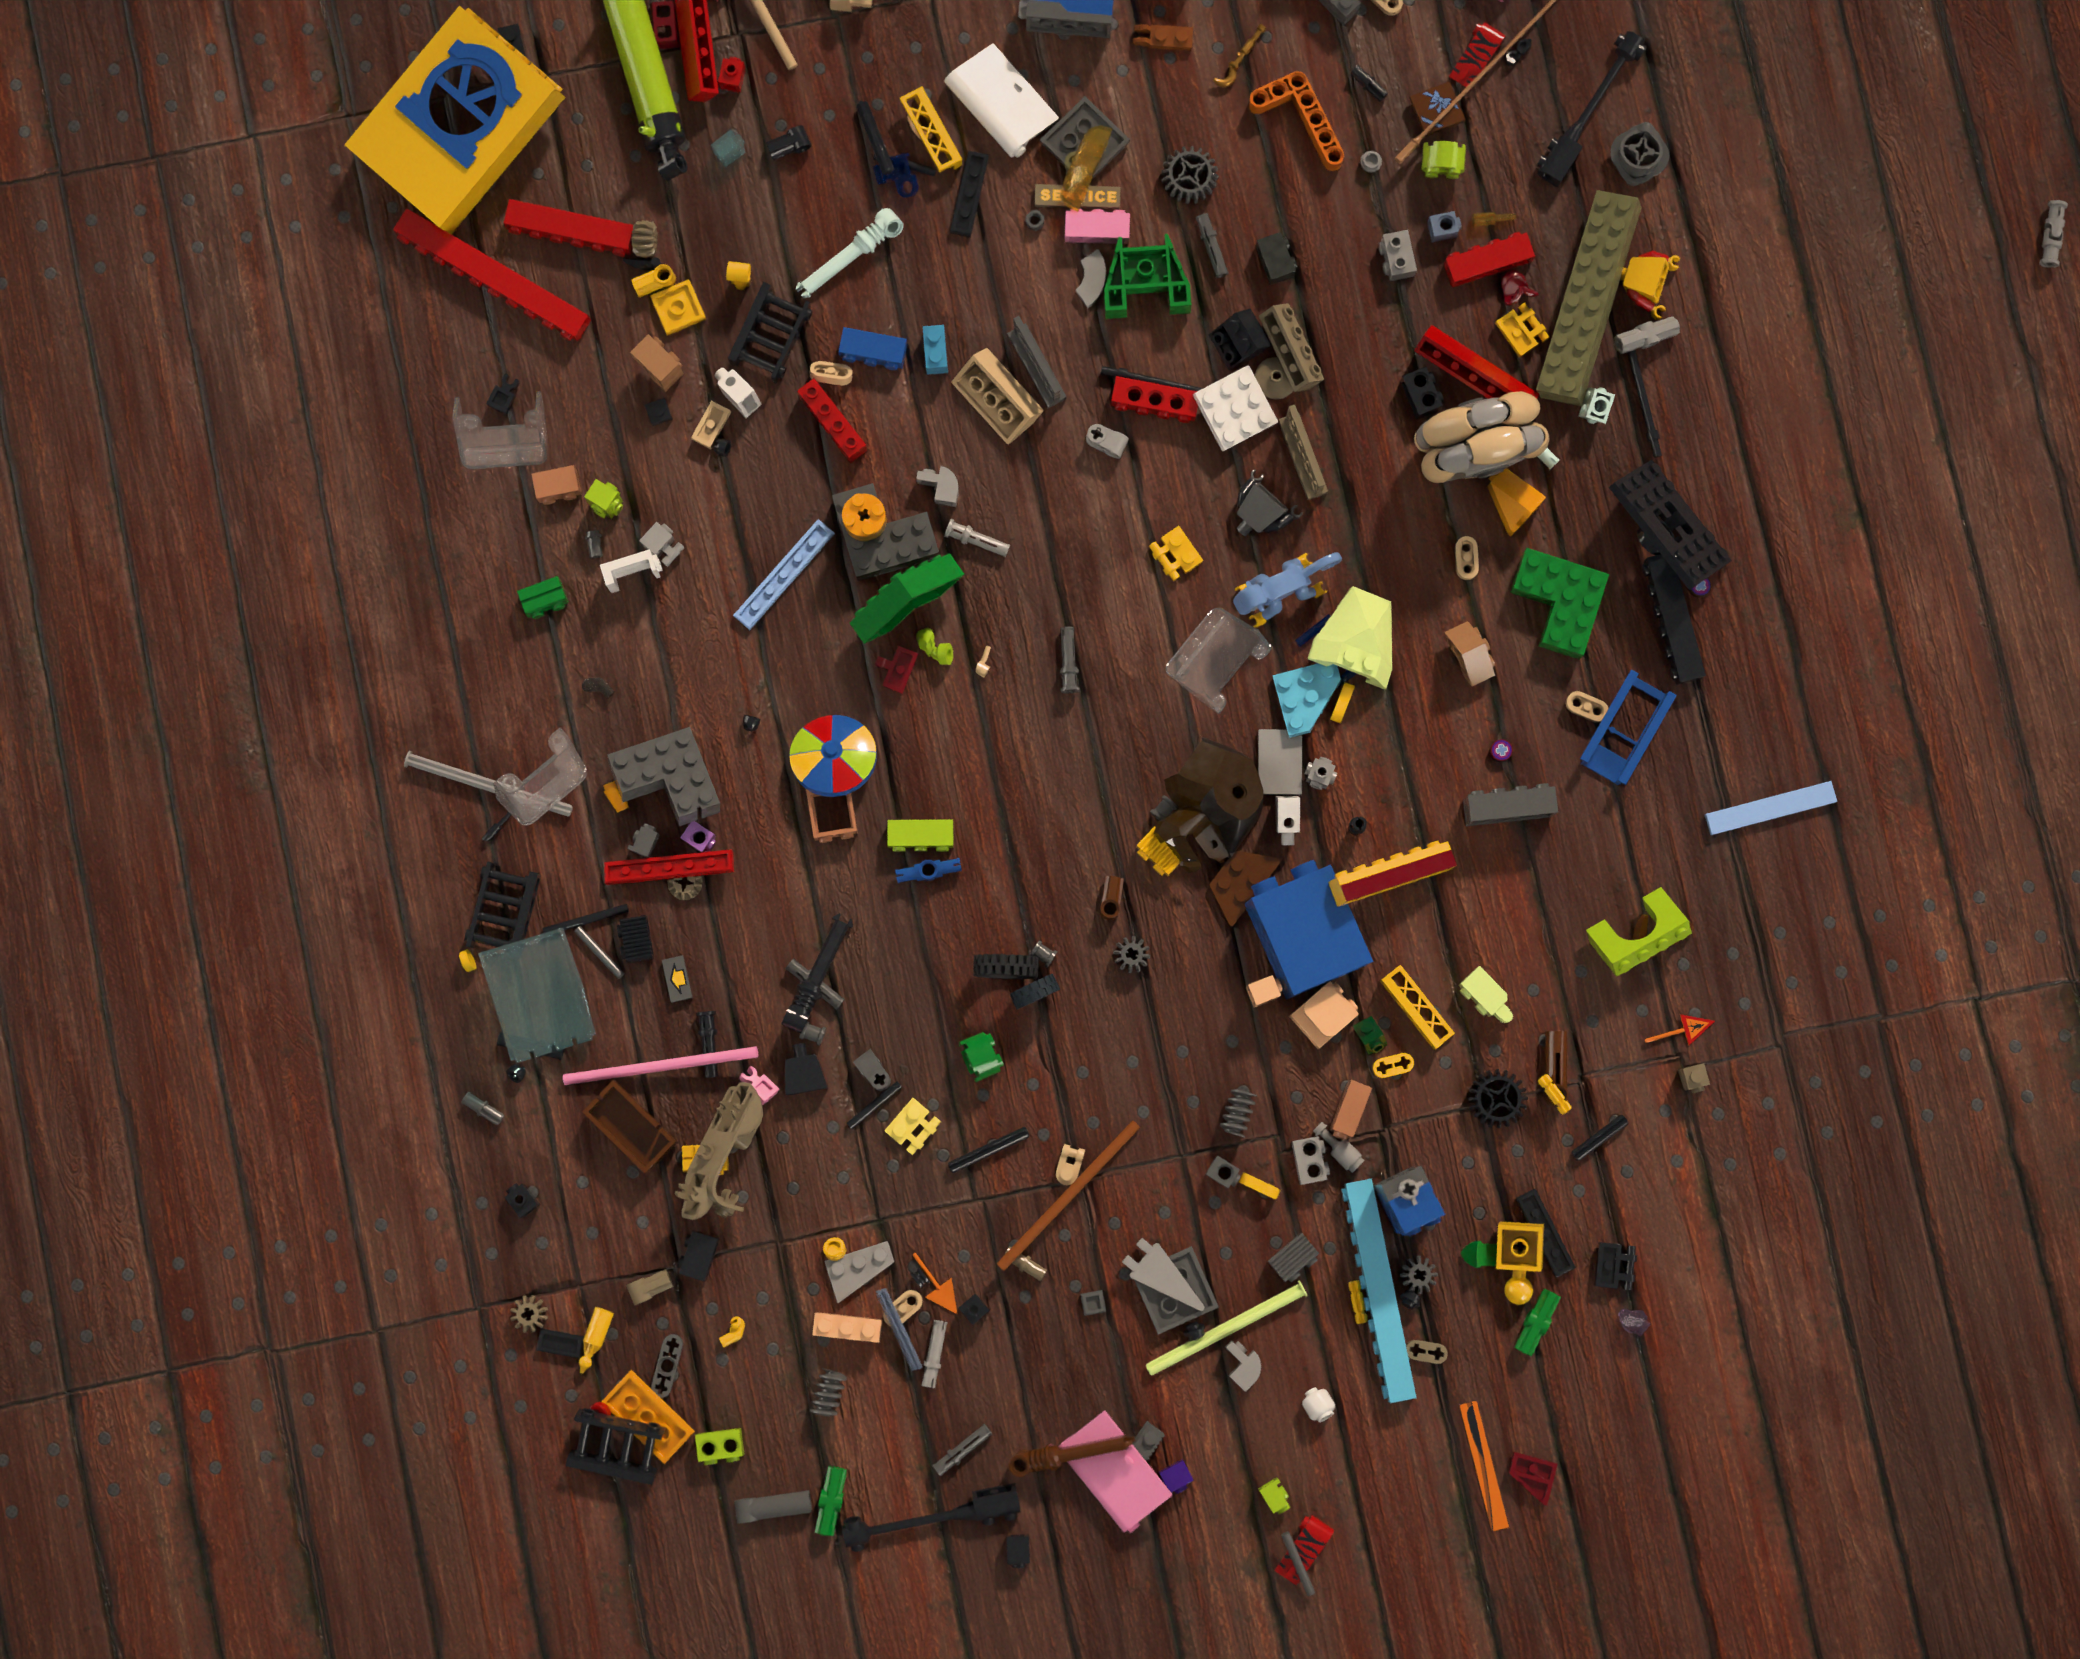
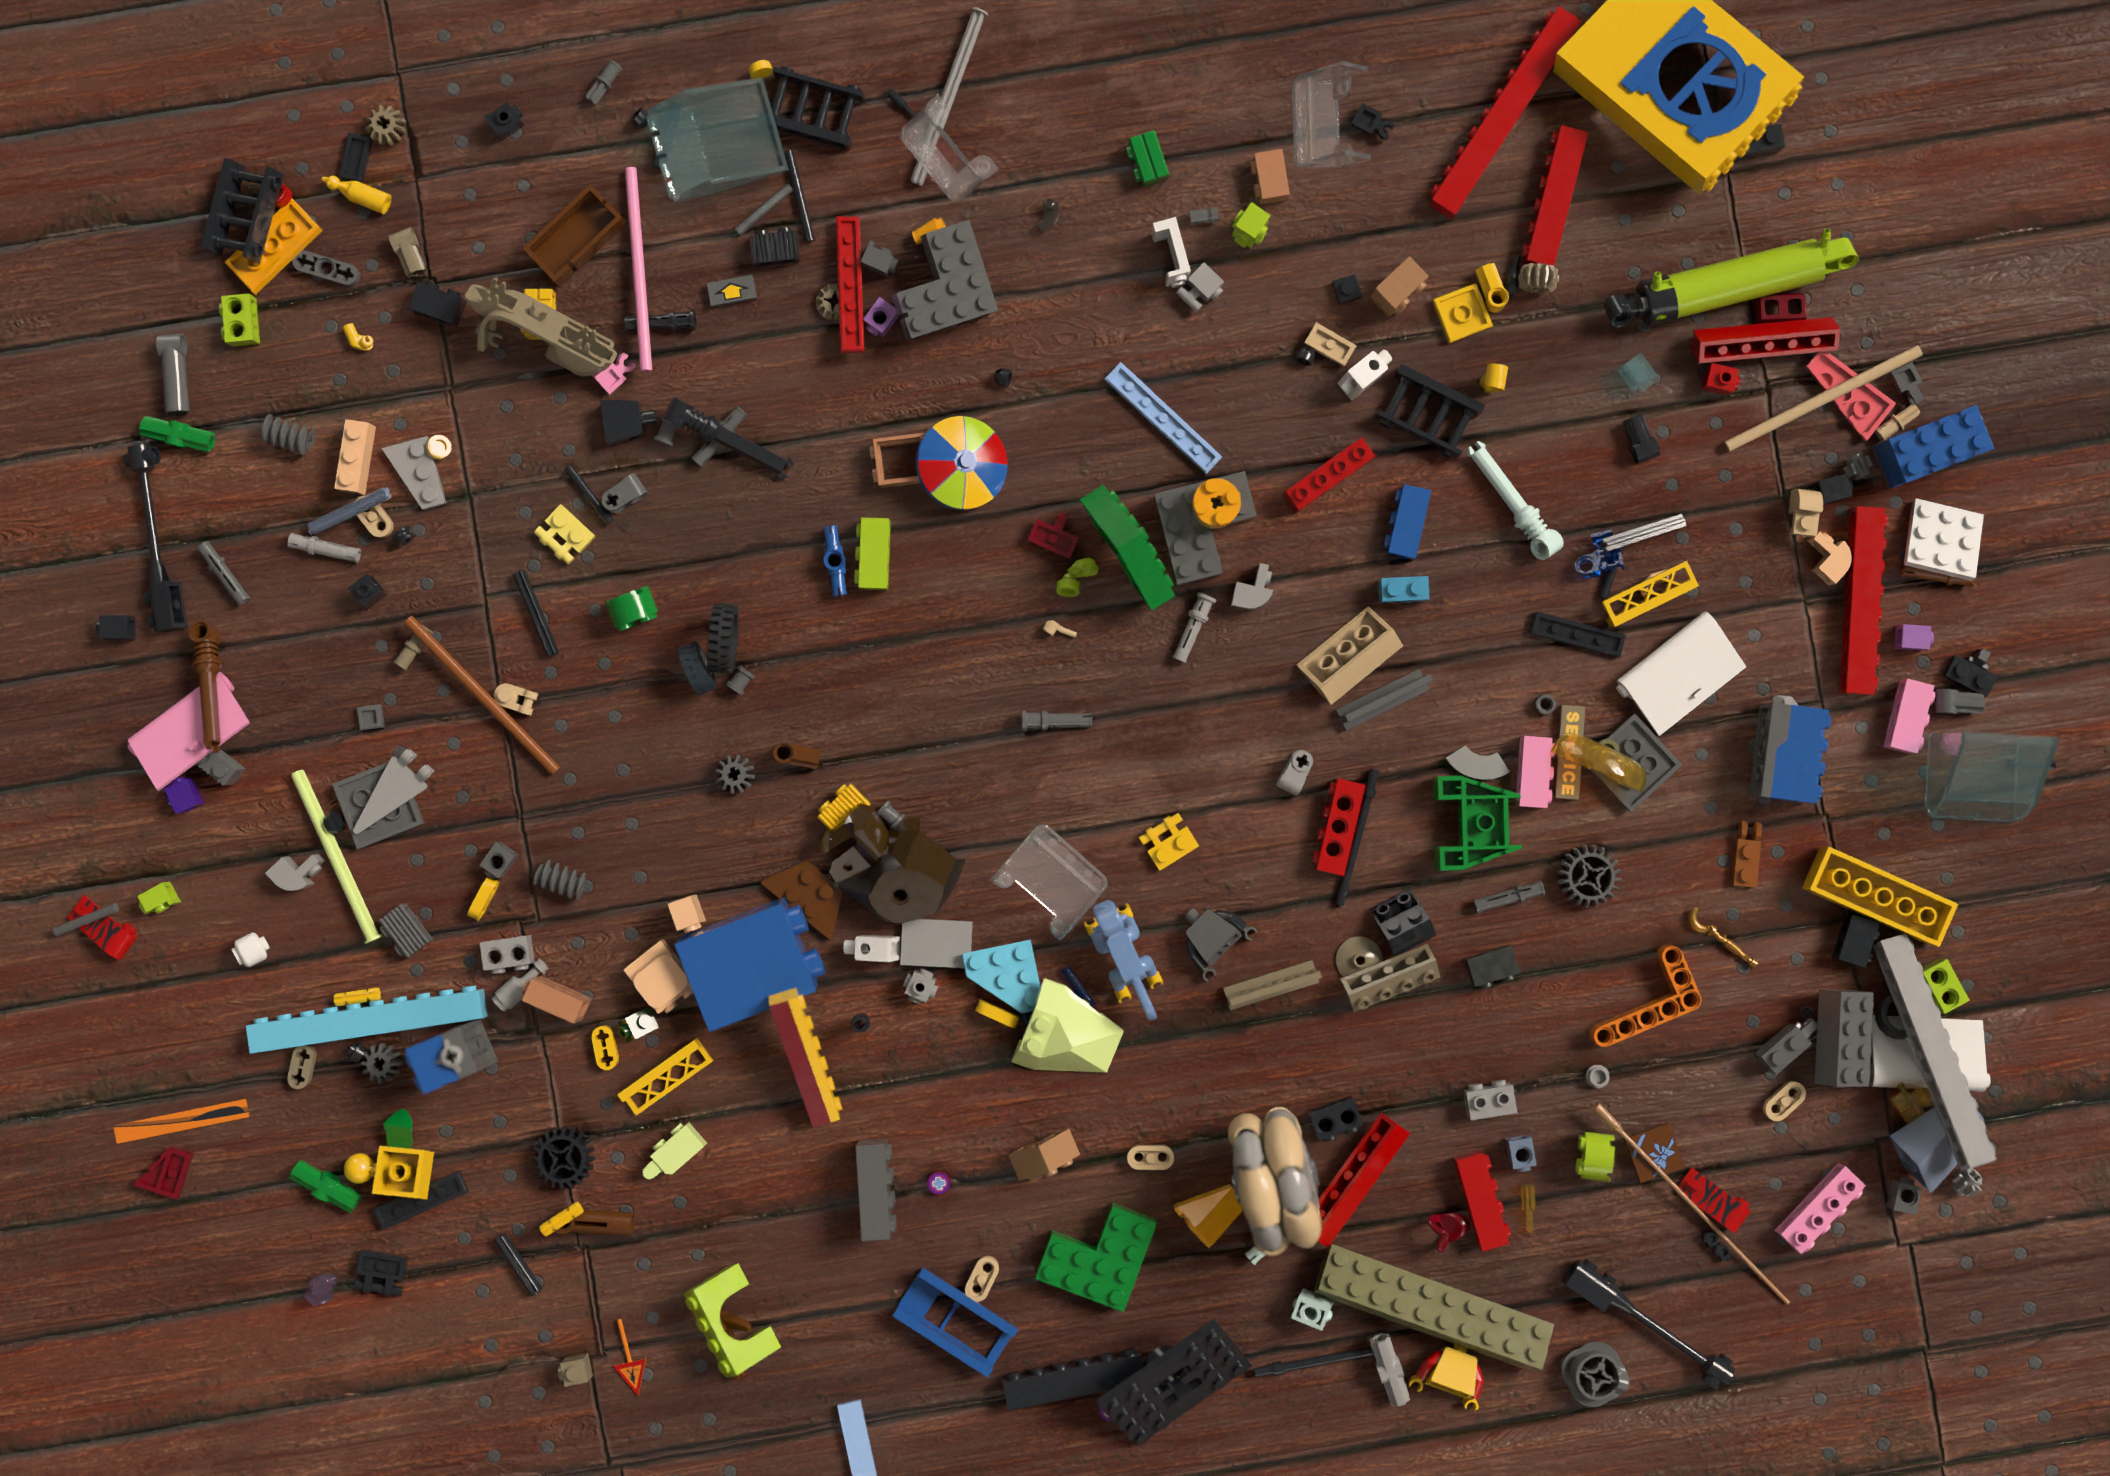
camera: 90 degrees right, 5 degrees up
(831, 373) = (1382, 476): tan plate -> none
(942, 1294) = (387, 560): orange piece -> none
(1235, 408) = (1325, 913): white plate -> none
(1368, 83) = (1686, 1078): black axle -> none
(1517, 333) = (1397, 1227): yellow plate -> none

